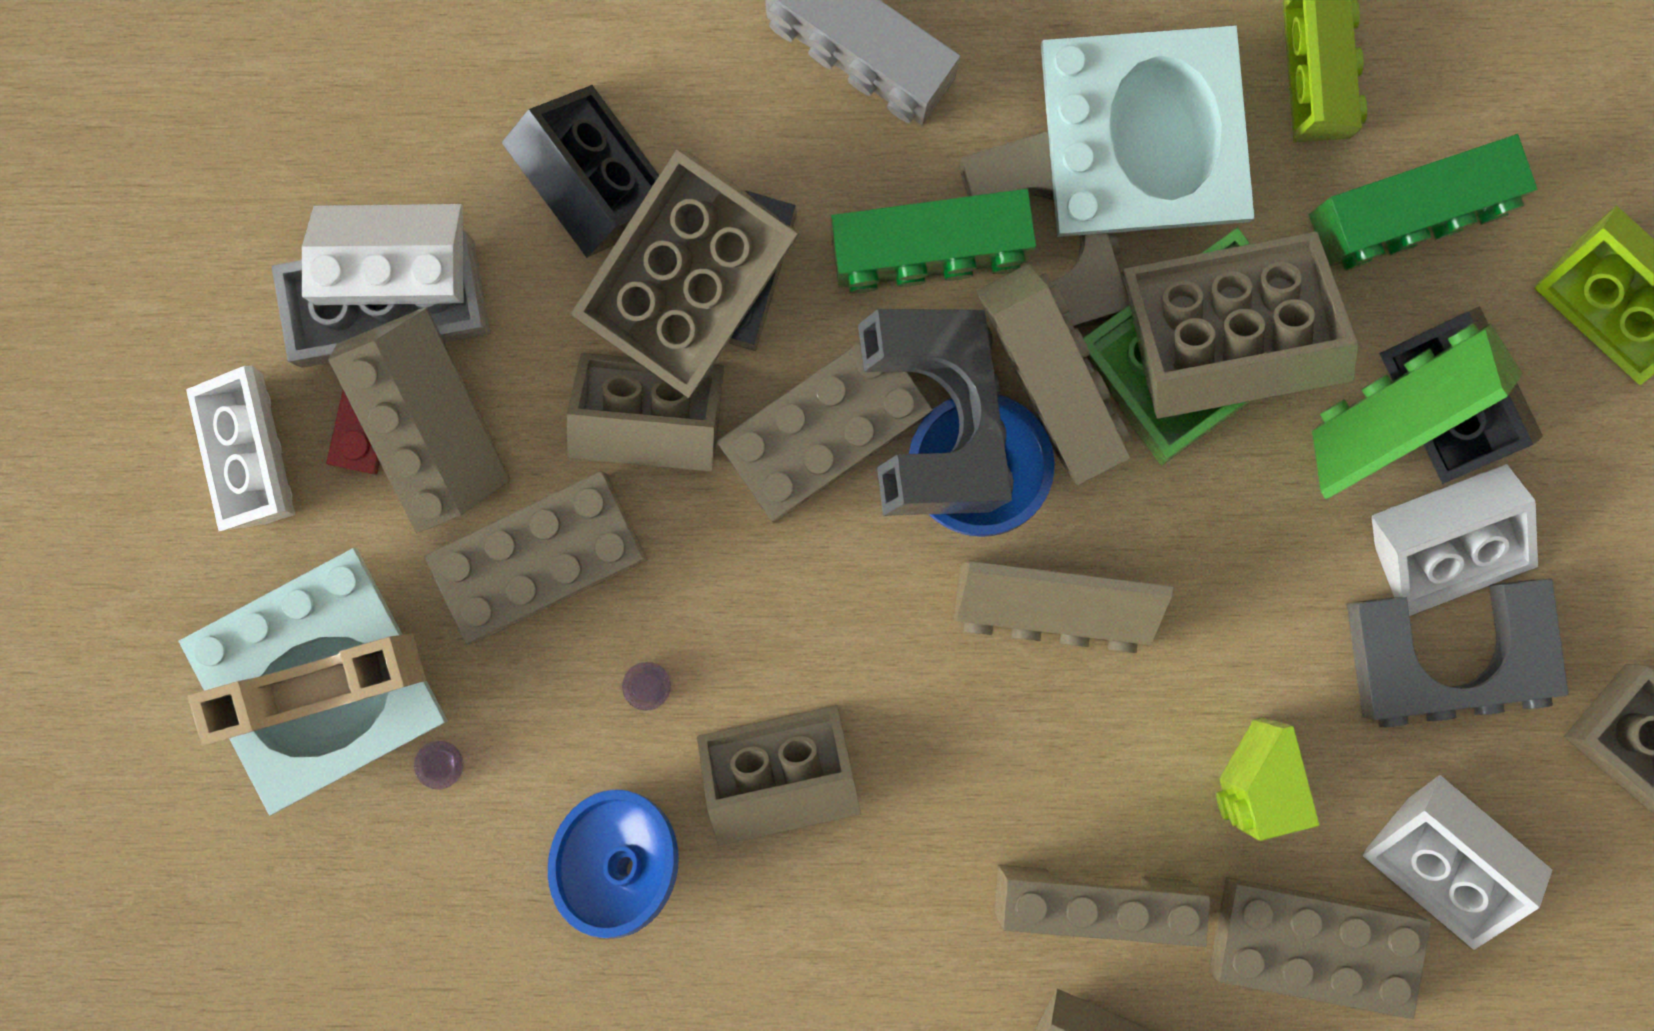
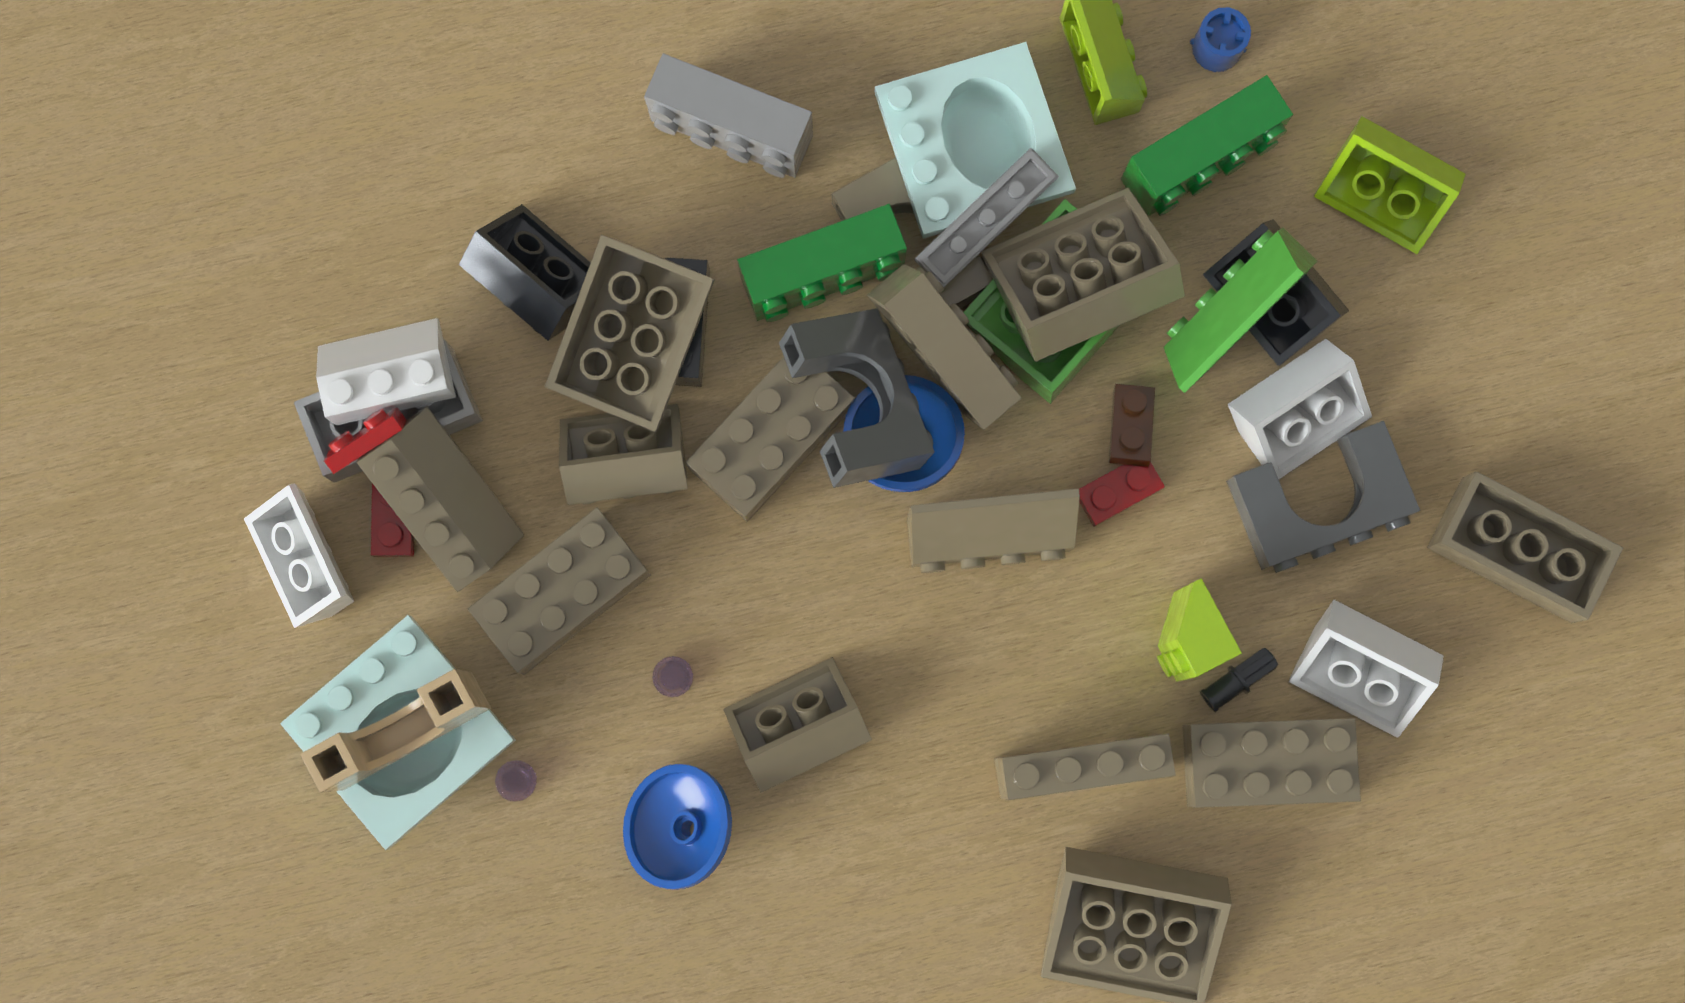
camera: 15 degrees left, 5 degrees down
(362, 324) = (377, 429): none -> red plate
(1139, 230) = (987, 217): none -> light grey tile
(1219, 585) = (1118, 491): none -> red plate
(1252, 514) = (1132, 425): none -> reddish brown plate
(1303, 843) = (1239, 679): none -> black axle
(1471, 73) = (1221, 39): none -> blue piece

